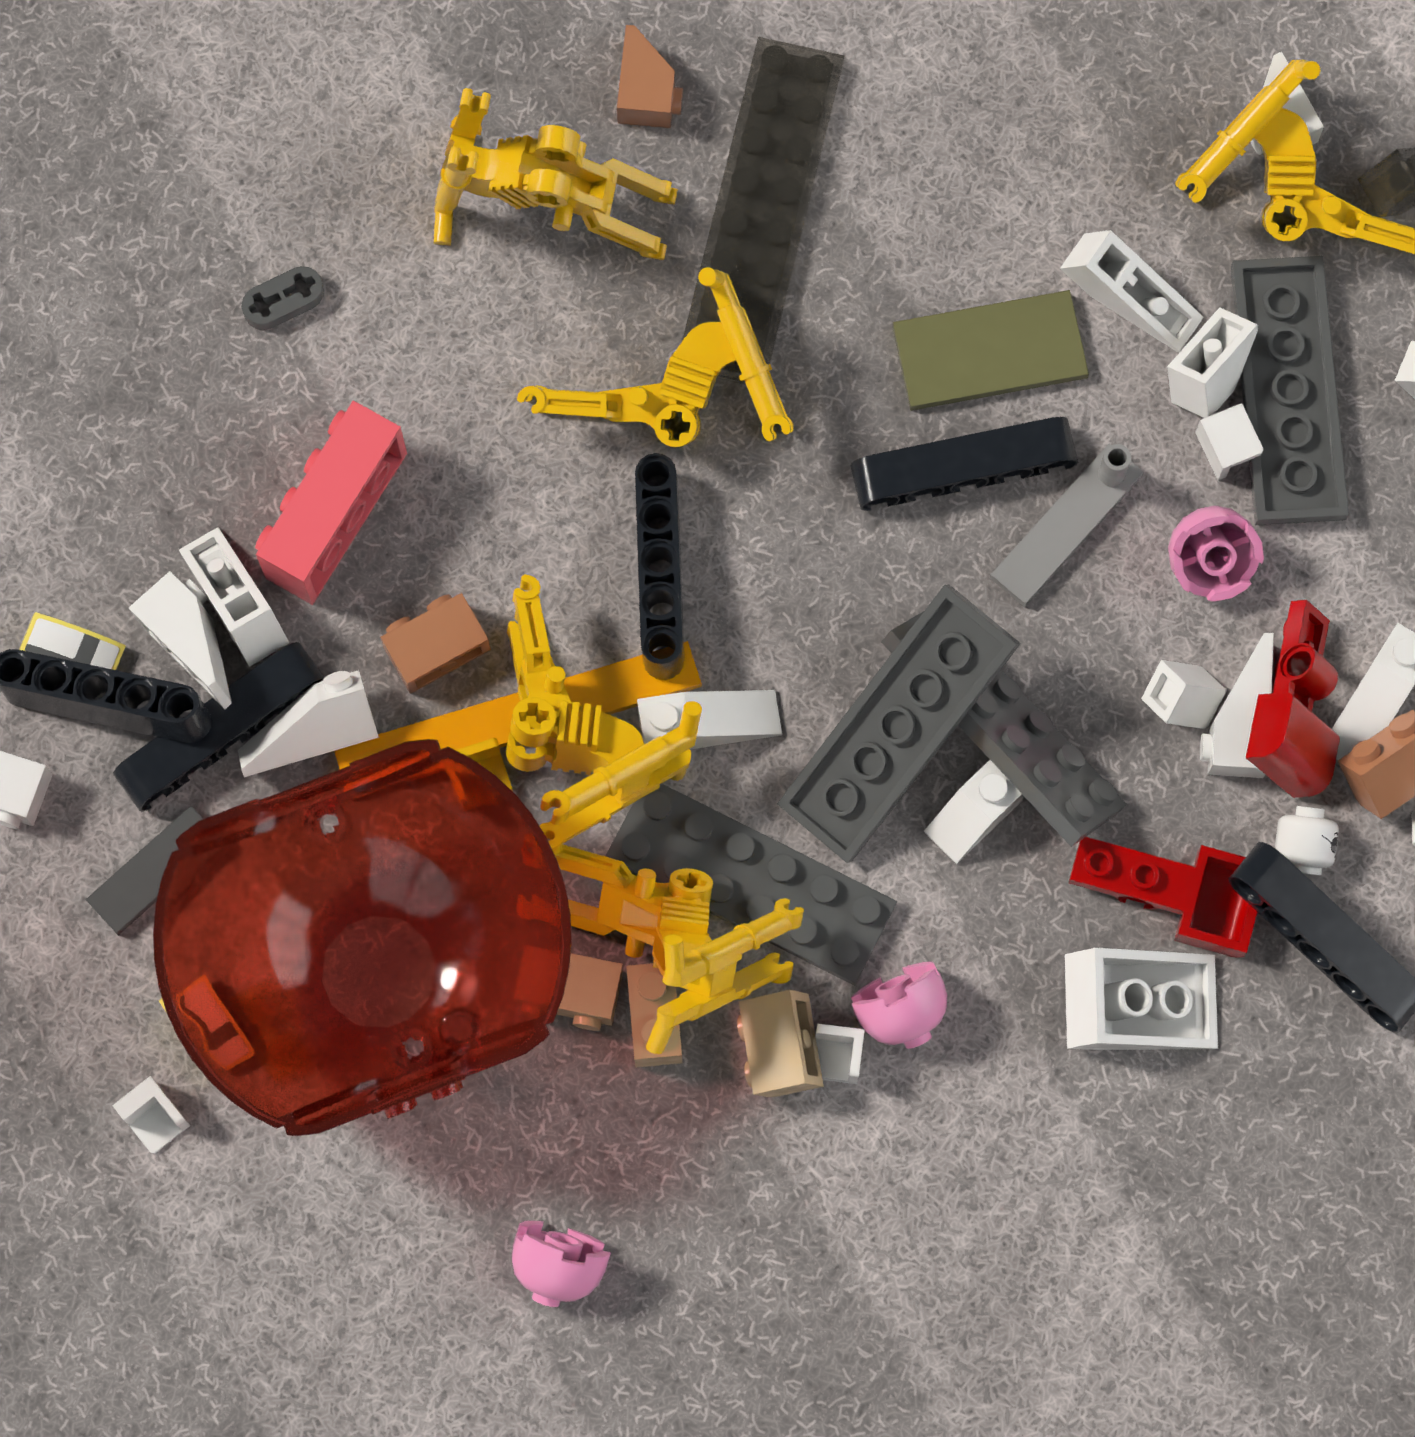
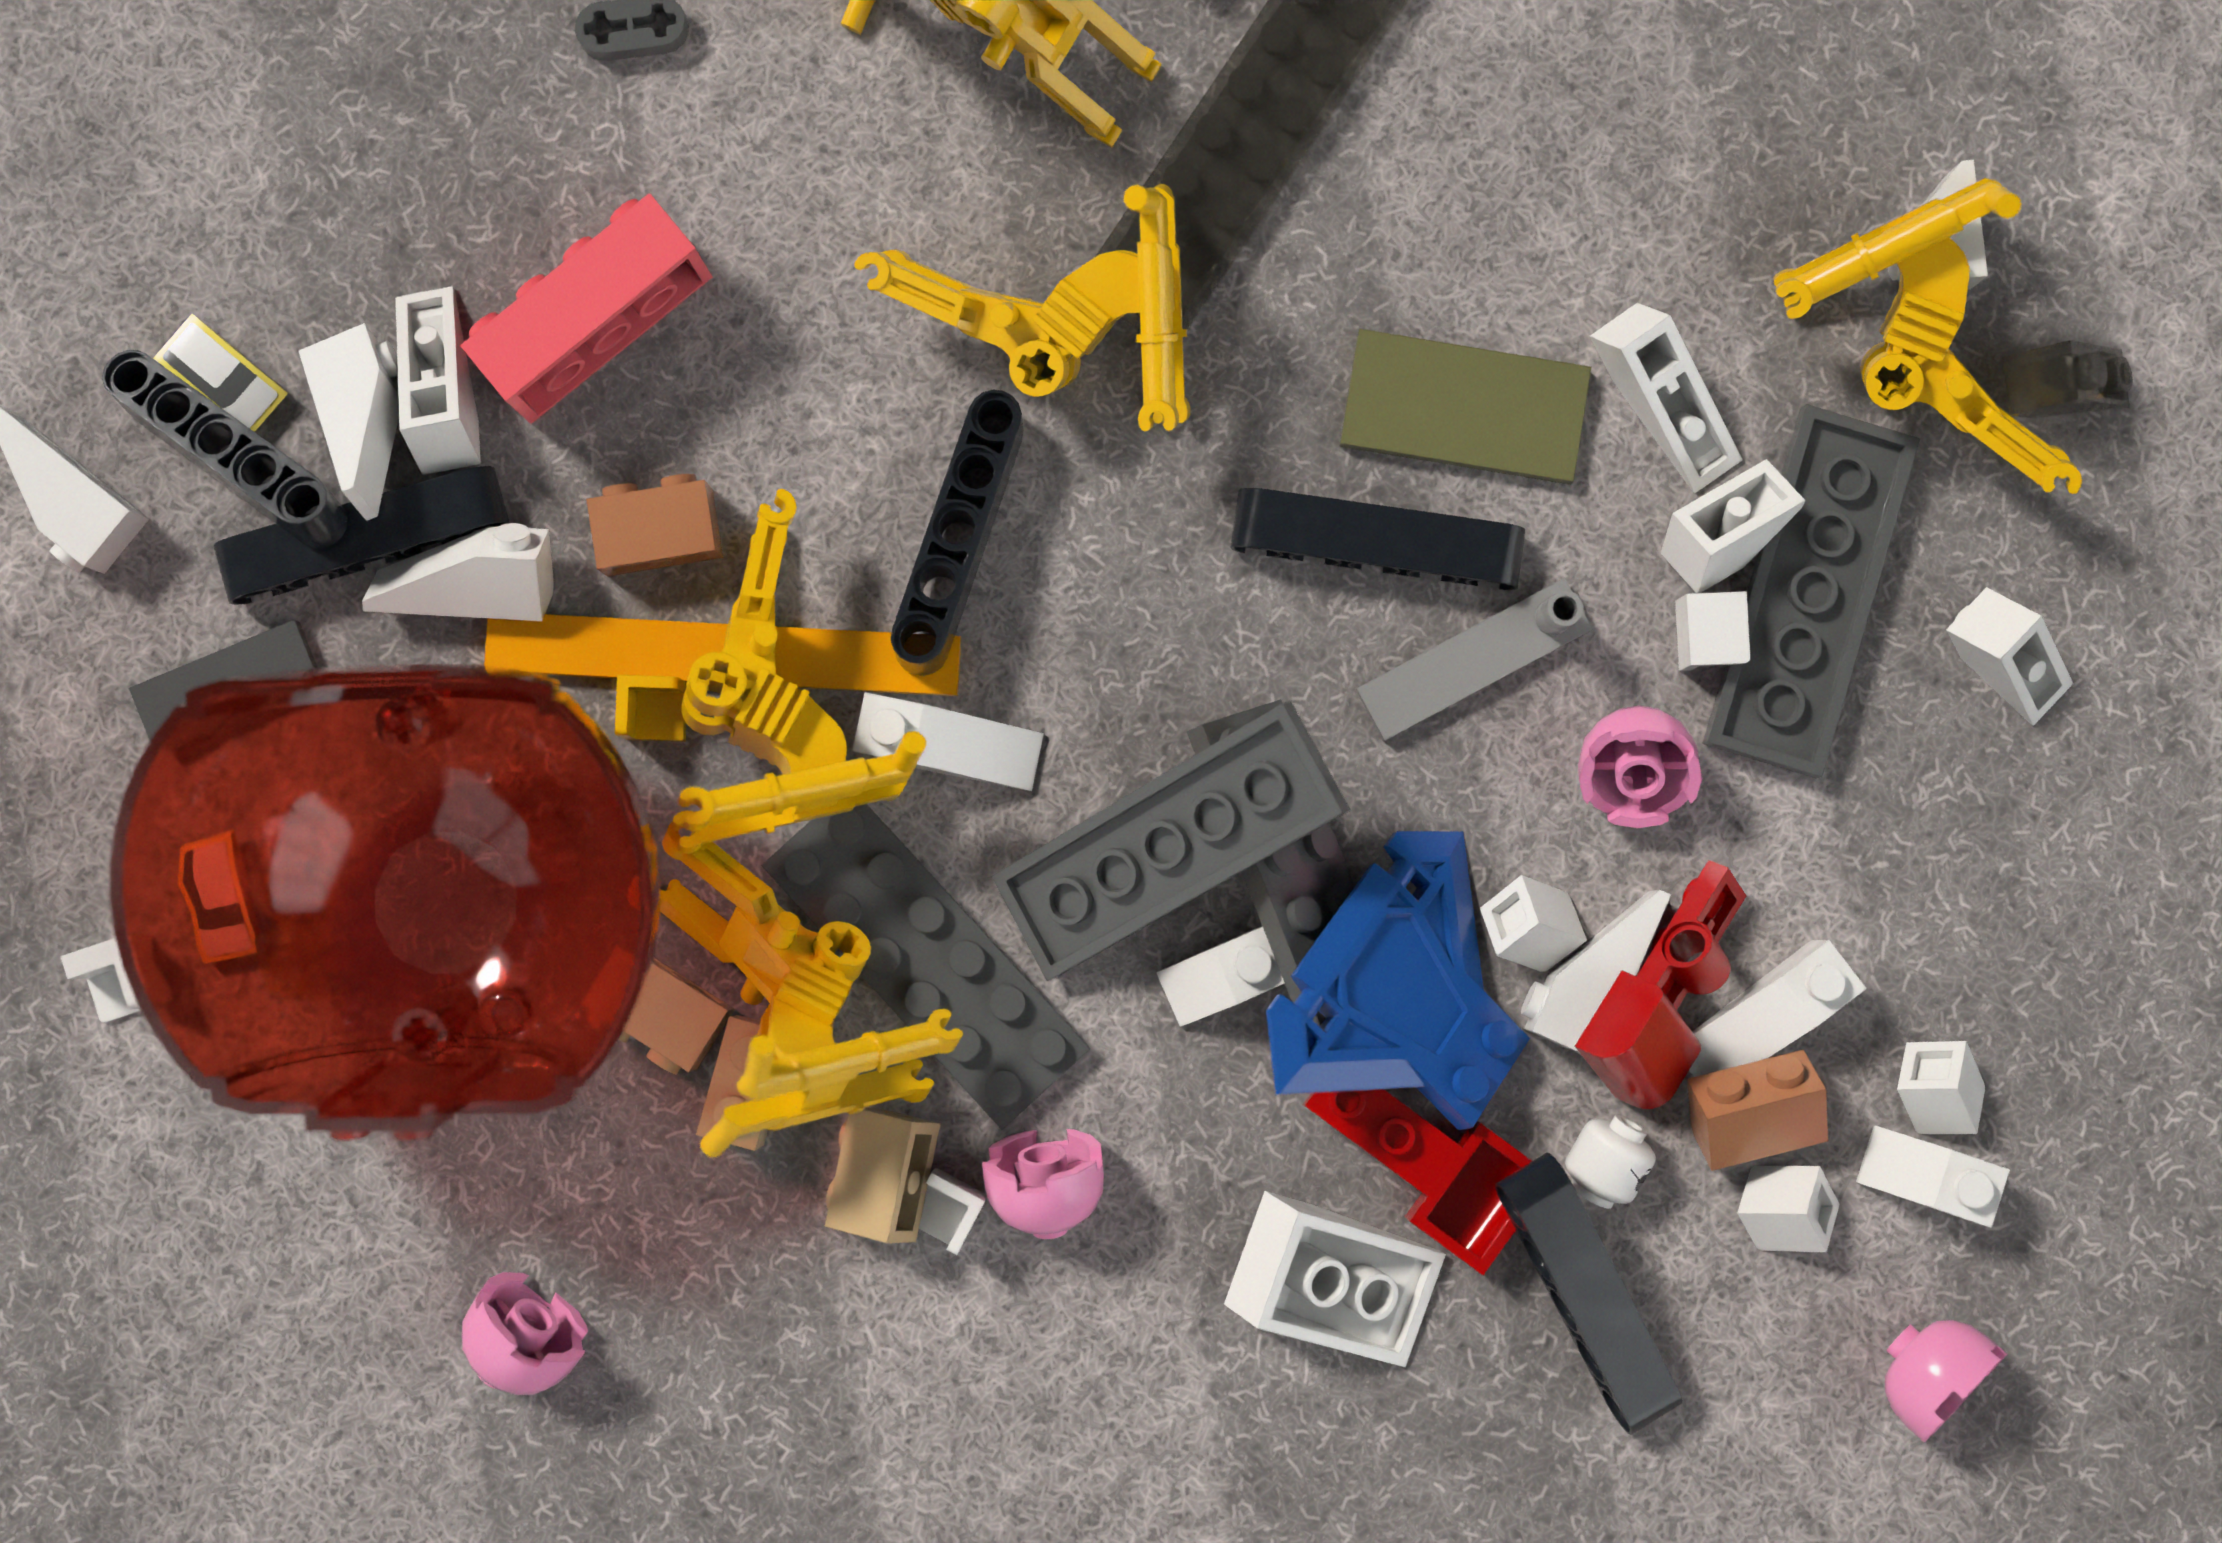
camera: 20 degrees right, 10 degrees up
(1106, 769) = (1399, 990): none -> blue plate

